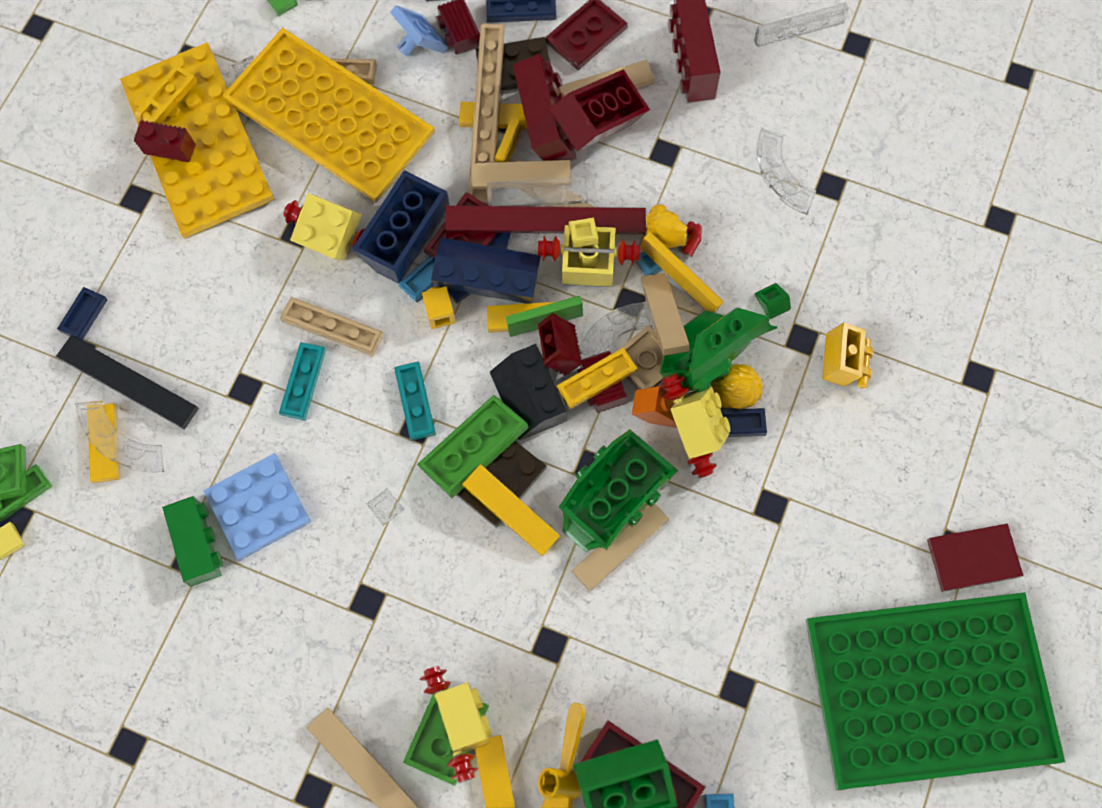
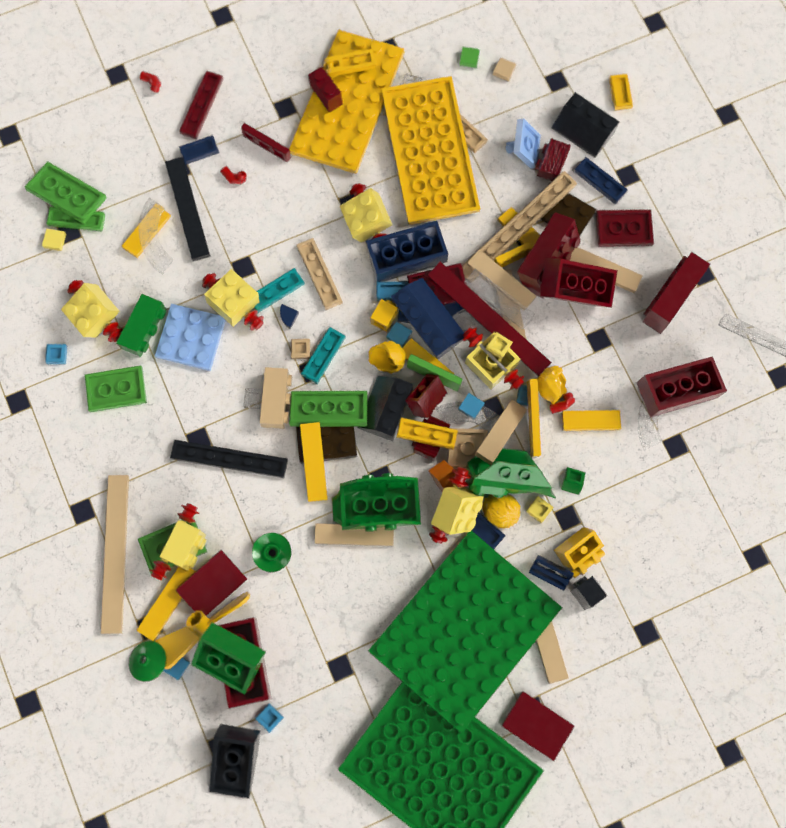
camera: 40 degrees right, 5 degrees up
(41, 268) = (201, 104): none -> dark red tile
(122, 574) = (91, 311): none -> light yellow brick
(123, 656) = (56, 354): none -> dark azure tile
(149, 246) = (266, 142): none -> dark red tile
(154, 306) = (238, 178): none -> red arm
(225, 632) = (115, 388): none -> bright green tile
(266, 426) = (233, 299): none -> light yellow brick
(340, 394) = (288, 315): none -> dark blue tile
(385, 415) = (300, 348): none -> tan tile
(408, 484) = (275, 398): none -> tan brick
(418, 591) = (229, 458): none -> black tile
(471, 313) = (399, 334): none -> dark azure tile
(483, 342) = (387, 357): none -> yellow hair
(526, 731) = (211, 583): none -> dark red tile
(559, 626) = (264, 545): none -> green dish
(610, 316) = (471, 406): none -> dark azure tile
(733, 230) = (591, 420): none -> yellow tile
(770, 355) = (539, 509): none -> light yellow tile
(785, 124) = (681, 386): none -> dark red brick
(820, 535) = (465, 631): none -> green plate
(844, 411) = (549, 575): none -> dark blue tile
(895, 386) = (588, 592): none -> black brick
(902, 471) = (551, 655): none -> tan tile

